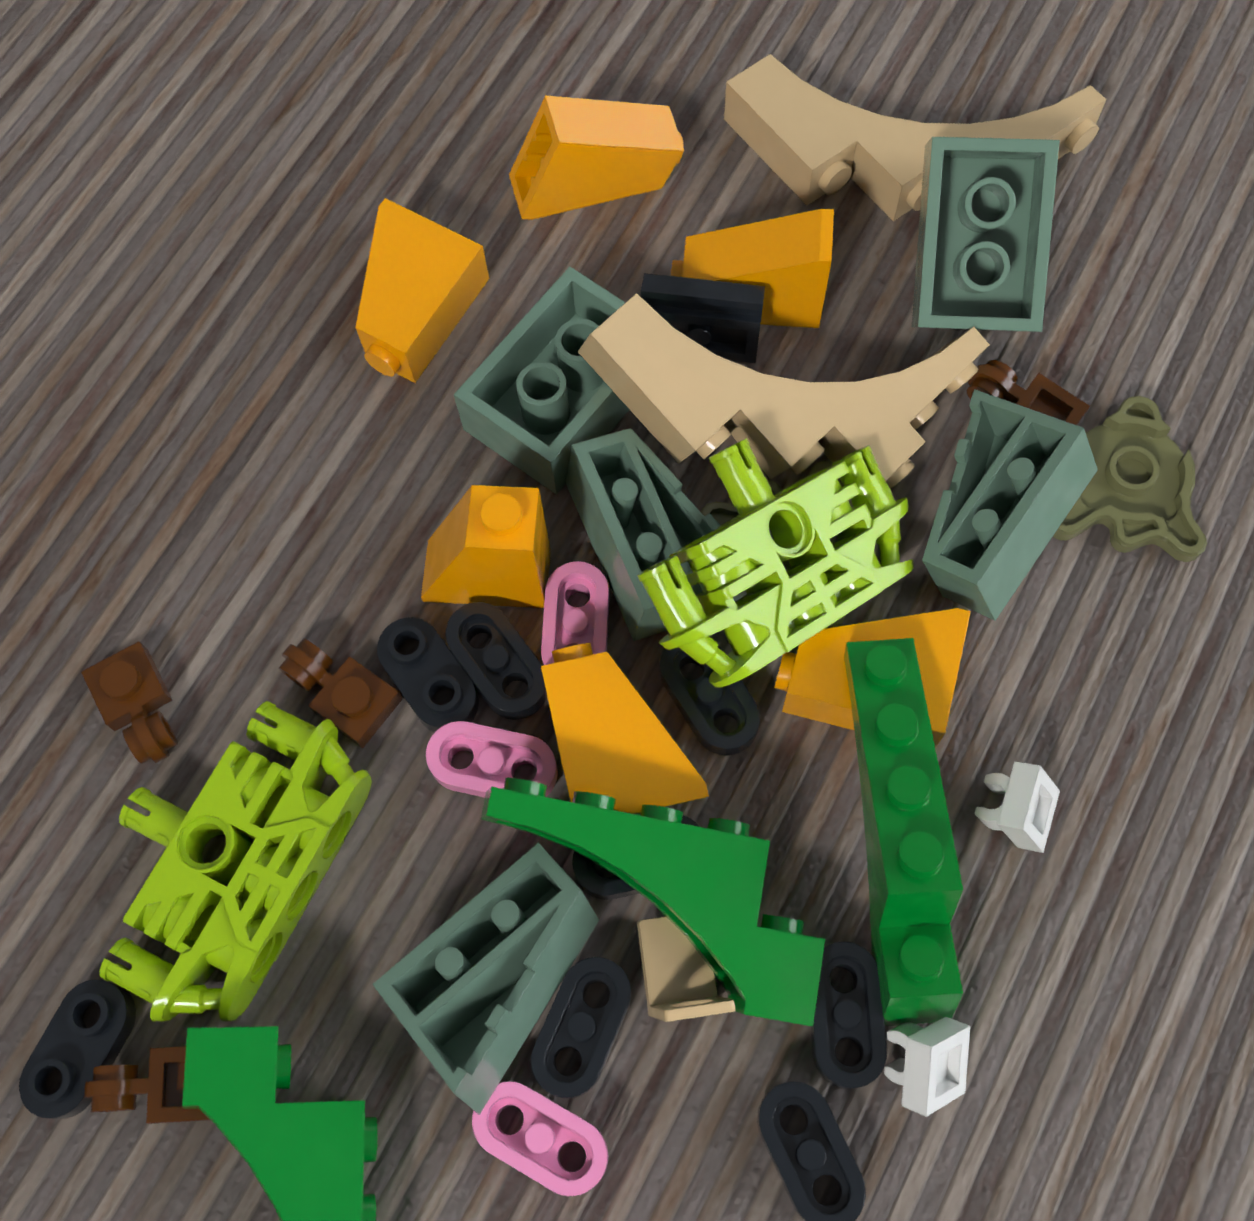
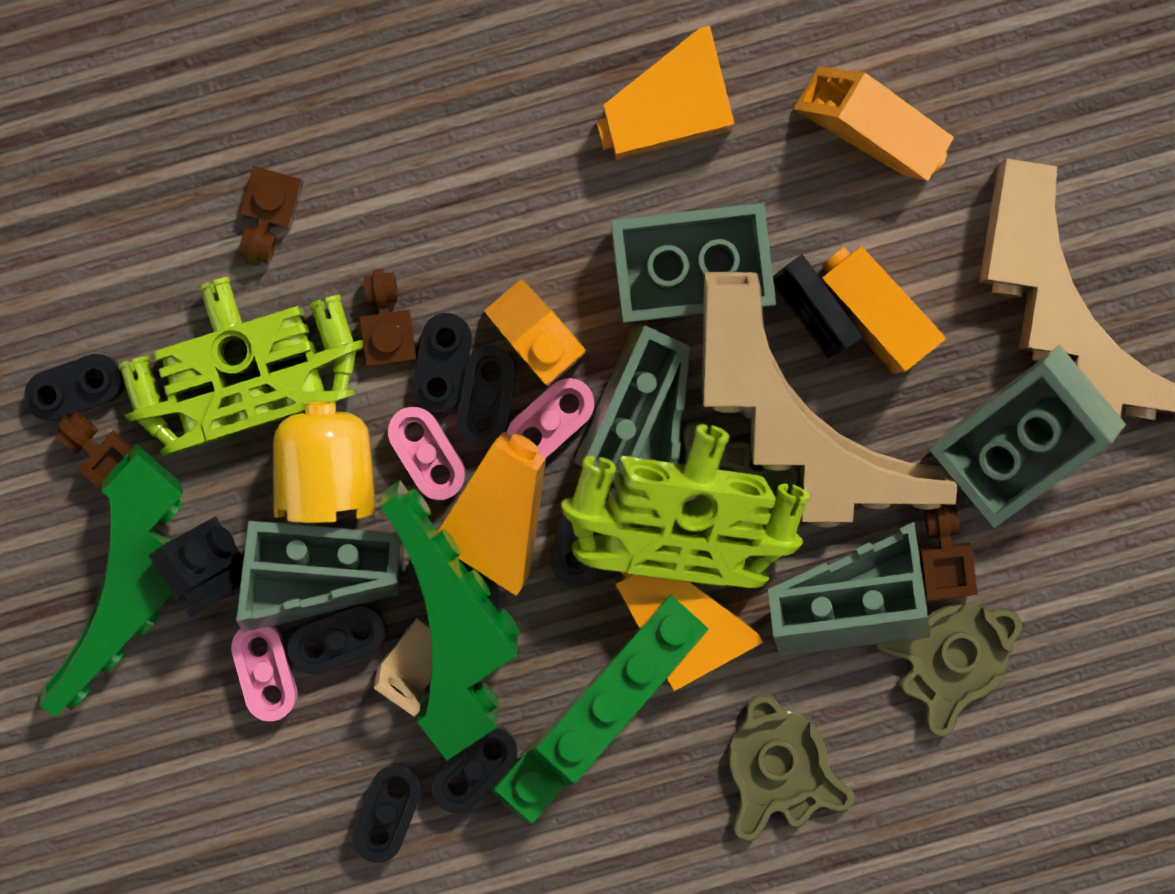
camera: 40 degrees right, 20 degrees up
(365, 1085) = (200, 565): none -> black plate
(396, 858) = (322, 465): none -> yellow cylinder
(933, 1063) = (488, 833): white tile -> none
(1026, 806) = (680, 766): white tile -> none
(1110, 722) = (781, 768): none -> olive tile

